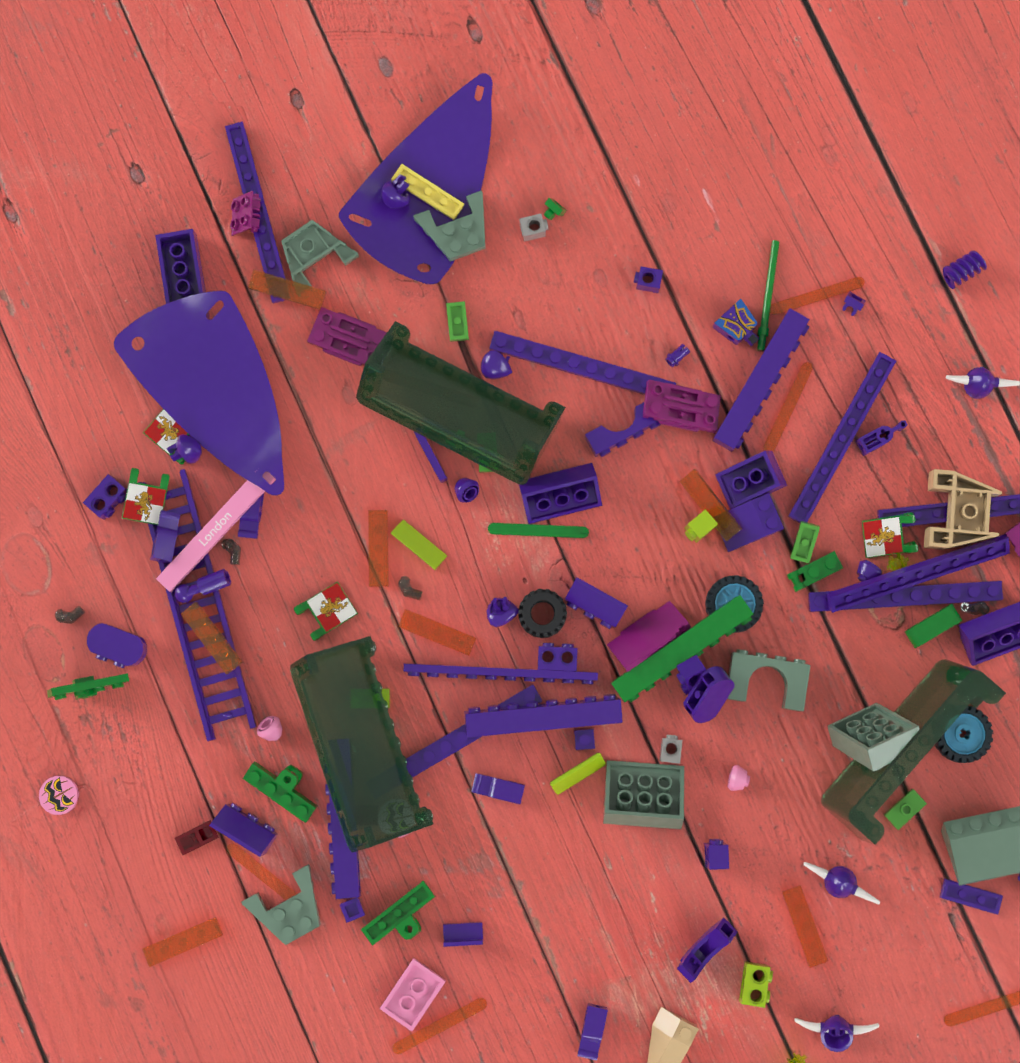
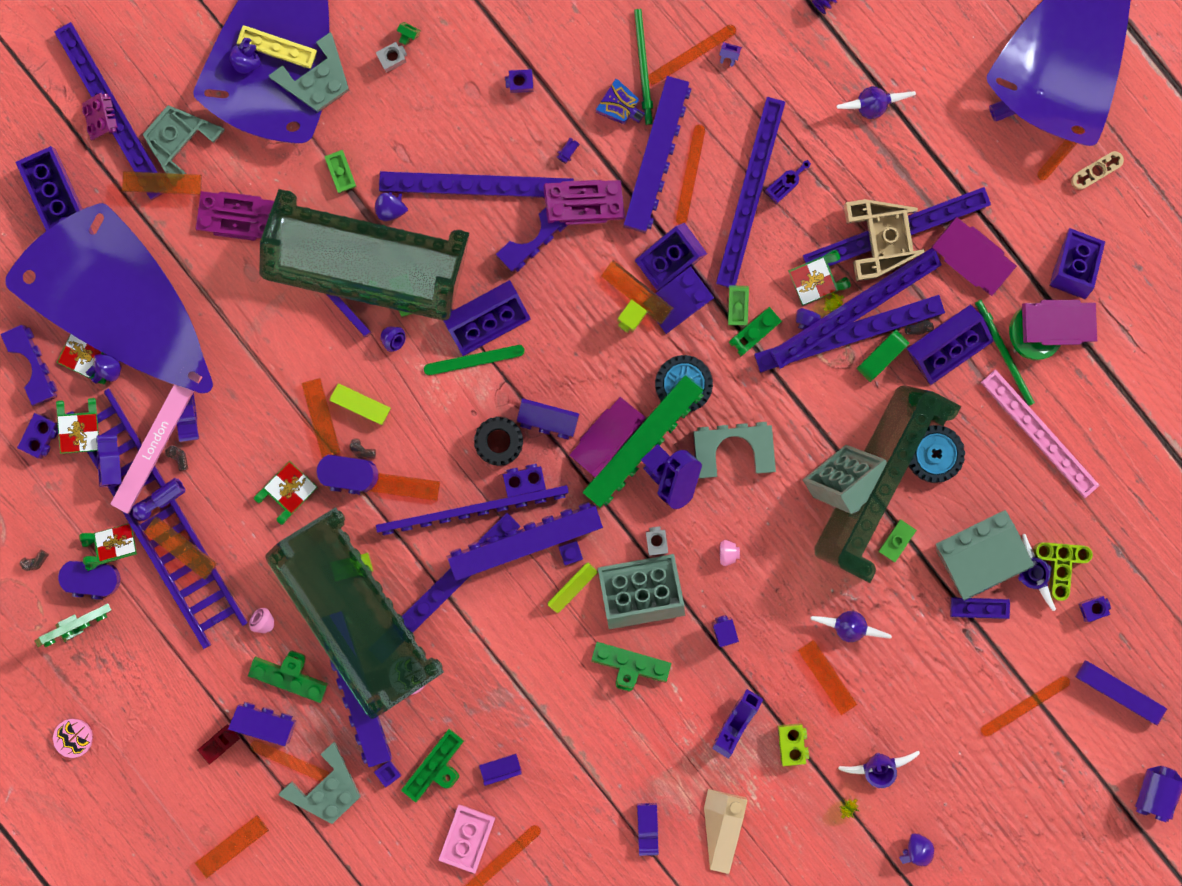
camera: 20 degrees left, 5 degrees up
(120, 451) = (39, 387): none -> dark purple arch
(144, 618) = (109, 545): none -> flag
(389, 607) = (347, 473): none -> dark purple brick
(498, 788) = (498, 622): dark purple piece -> none
(501, 611) = (457, 450): dark purple piece -> none
(615, 864) = (630, 665): none -> green plate

